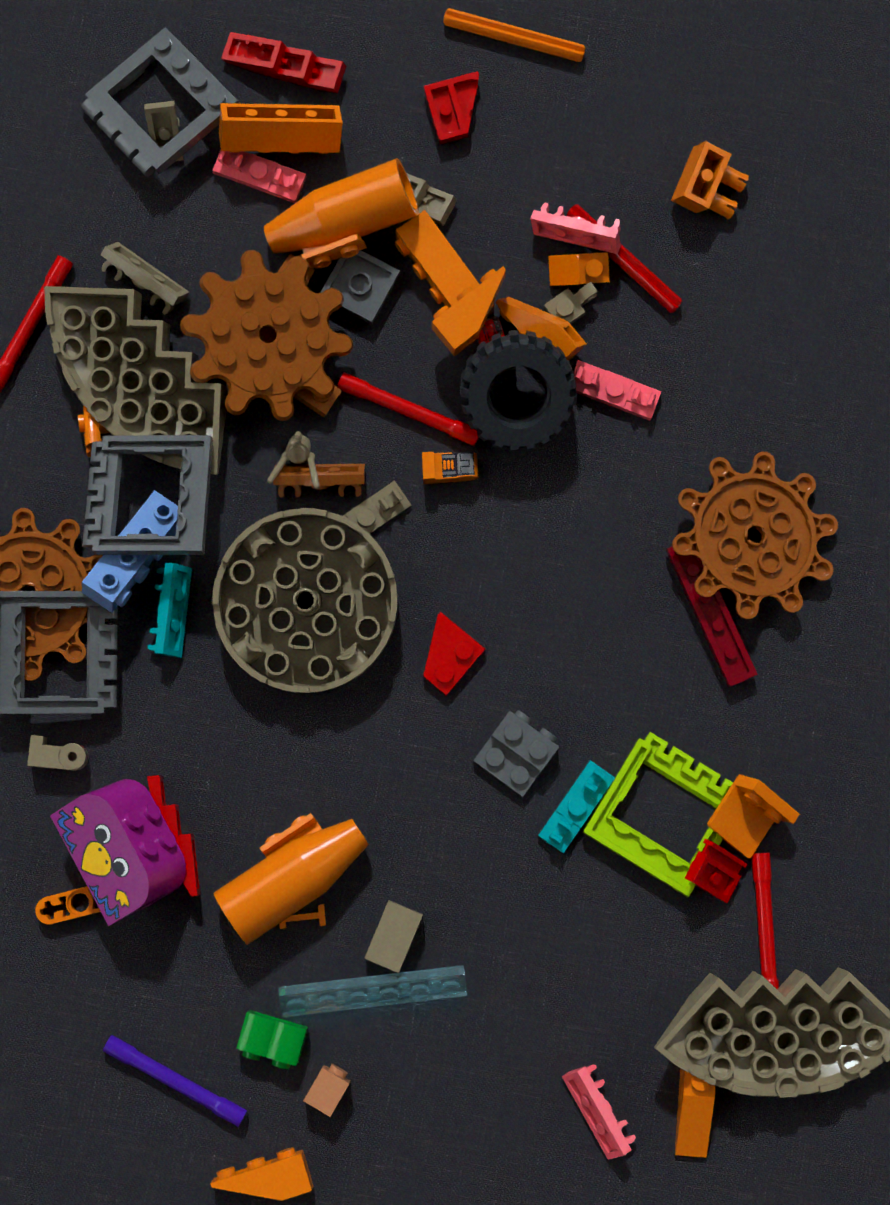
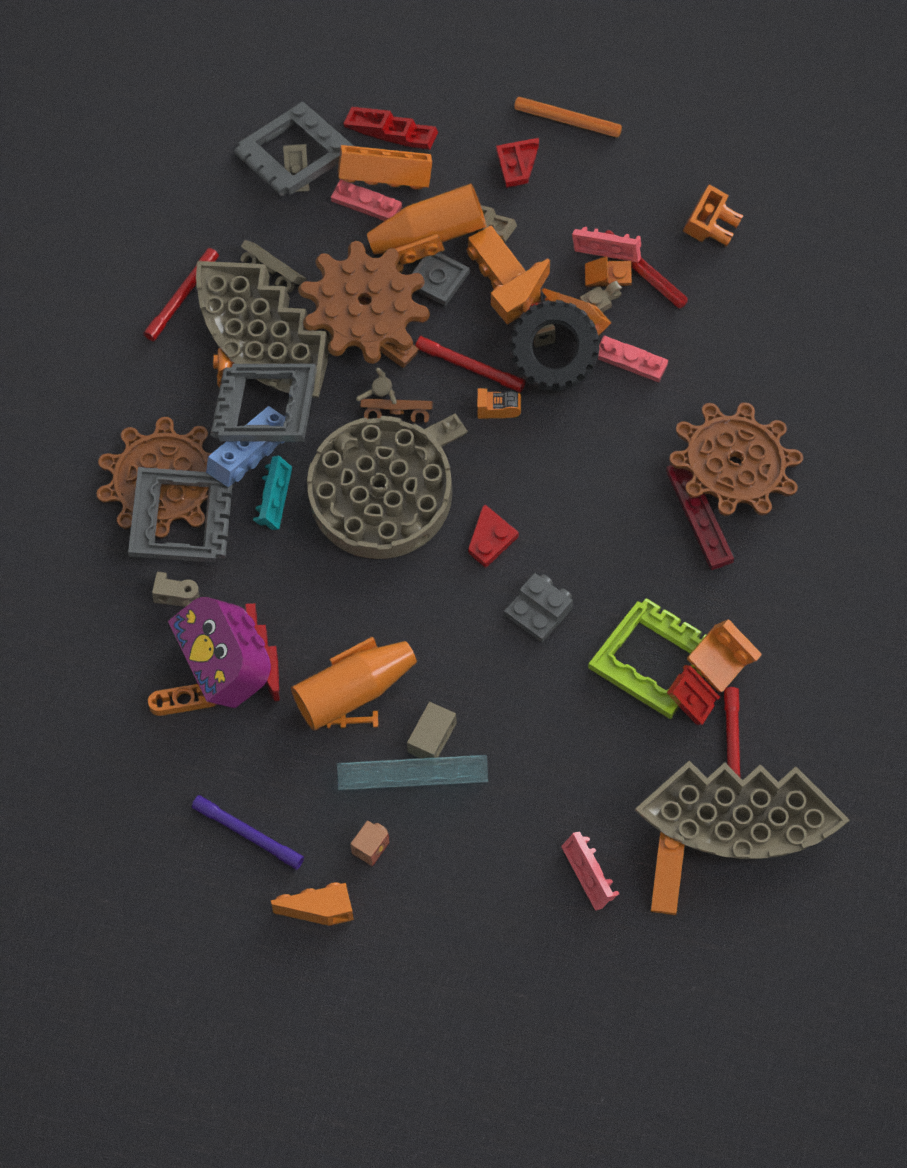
camera: 10 degrees right, 20 degrees down
(272, 1039) = (328, 802): green brick -> none
(576, 806) = (583, 650): teal plate -> none

